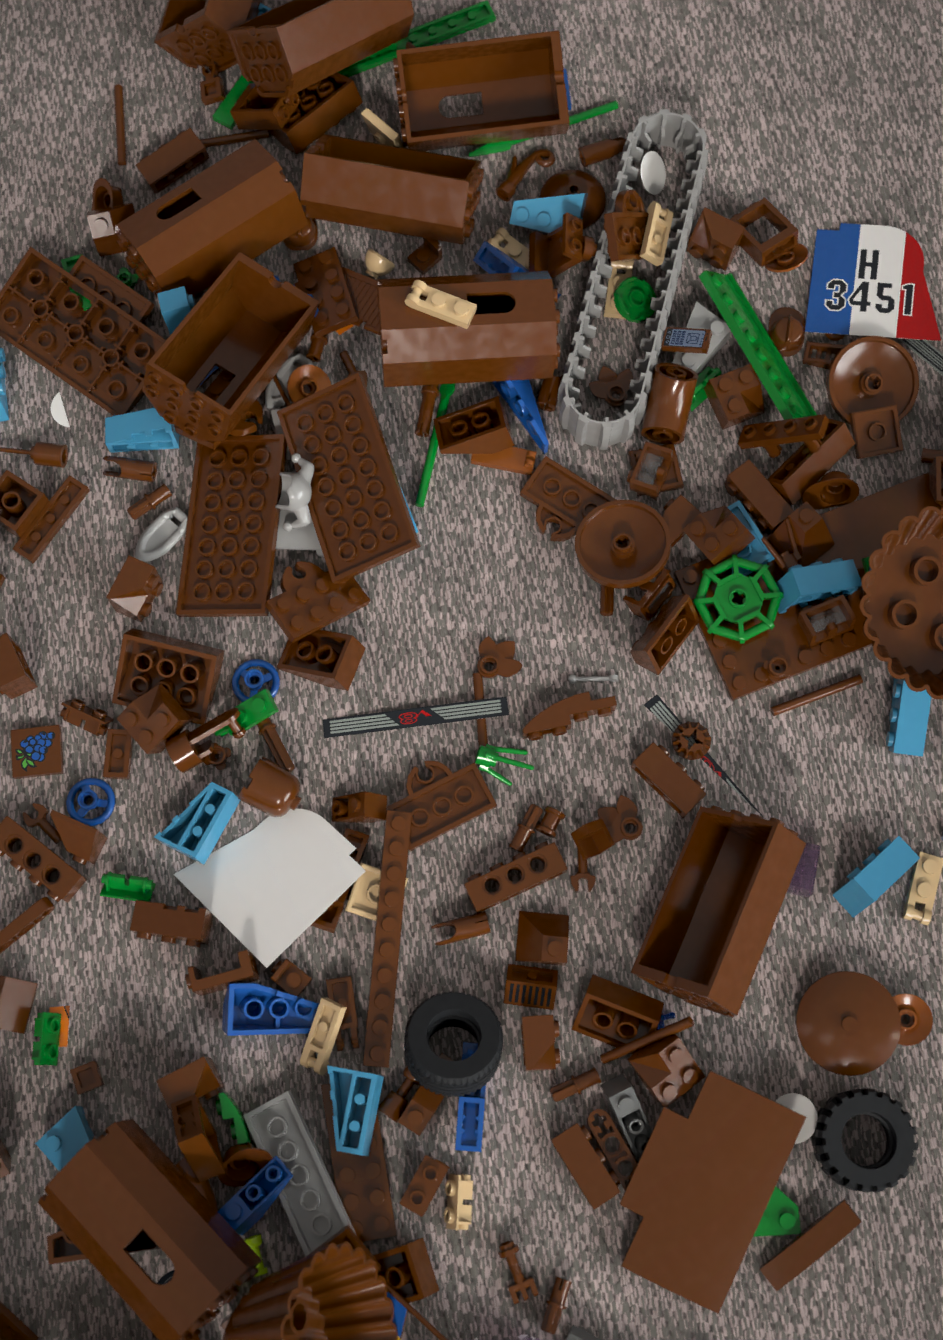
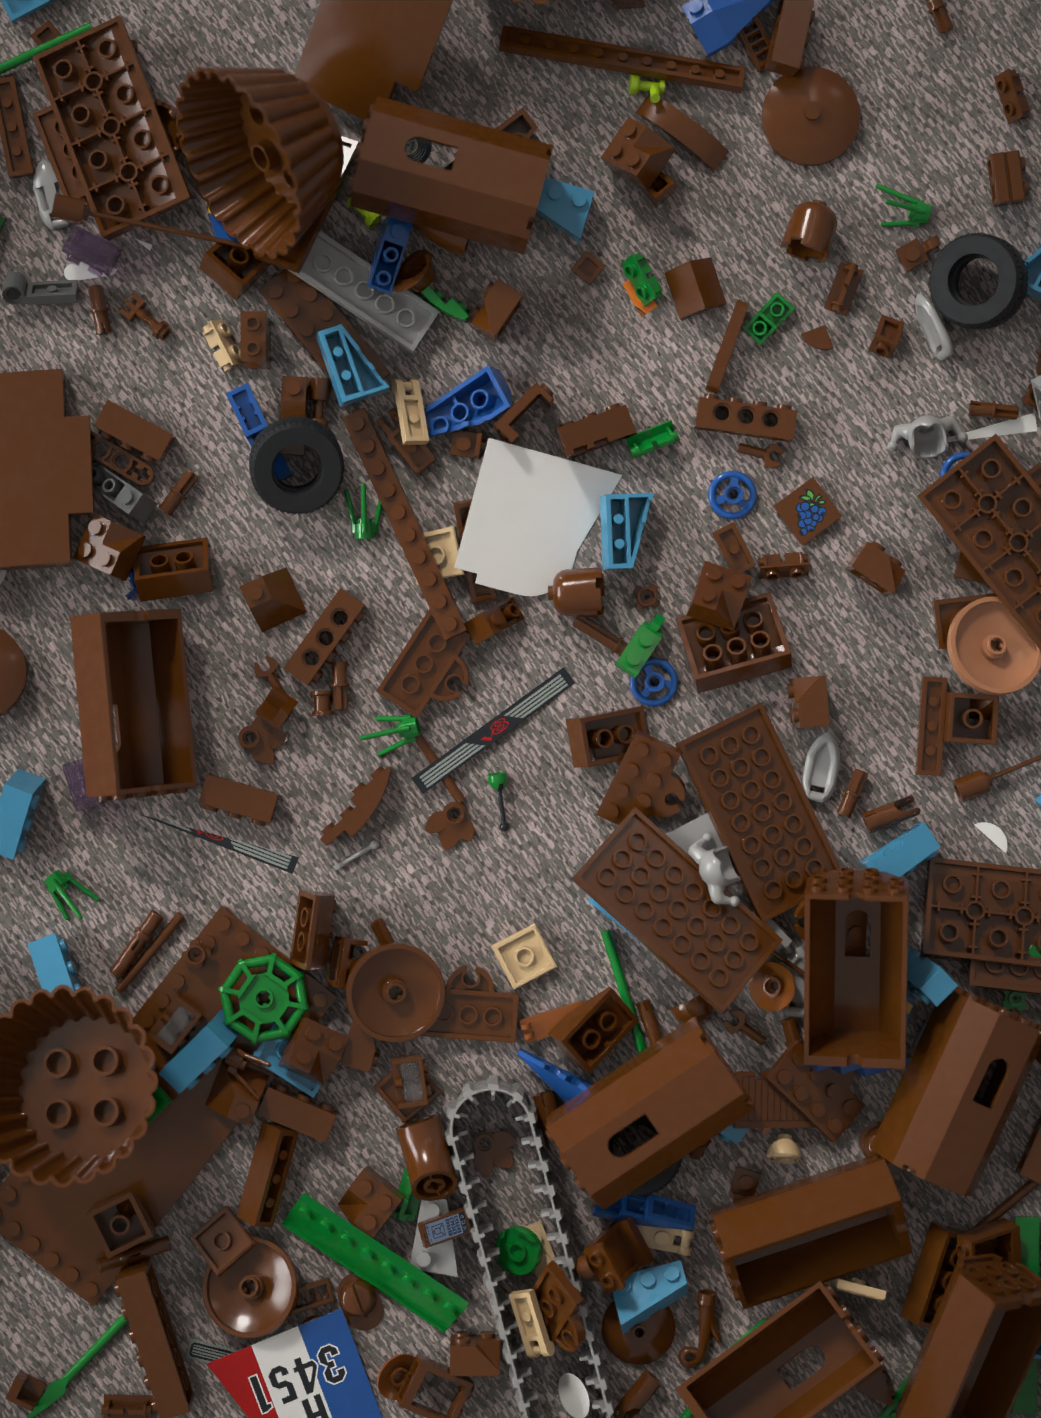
camera: 150 degrees right, 15 degrees up
(79, 838) = (719, 456): reddish brown slope -> none
(188, 753) = (669, 592): reddish brown piece -> none
(197, 1138) = (461, 269): reddish brown window -> none
(387, 401) = (694, 1007): none -> reddish brown helmet
(424, 955) = (363, 527): none -> green plant
(436, 672) = (498, 782): none -> hinge
(441, 304) = (674, 1107): tan plate -> none
(465, 927) = (342, 571): reddish brown piece -> none
(497, 520) = (524, 956): none -> tan plate
(530, 986) = (260, 553): reddish brown panel -> none
(538, 1042) = (226, 508): reddish brown slope -> none
(647, 1040) = (137, 560): reddish brown bar -> none
(680, 744) = (229, 839): reddish brown gear -> none
(772, 434) = (304, 1183): reddish brown plate -> none
(816, 711) = (142, 935): none -> reddish brown pin
(832, 490) = (235, 1156): reddish brown piece -> none
(870, 794) = (58, 884): none -> green plant

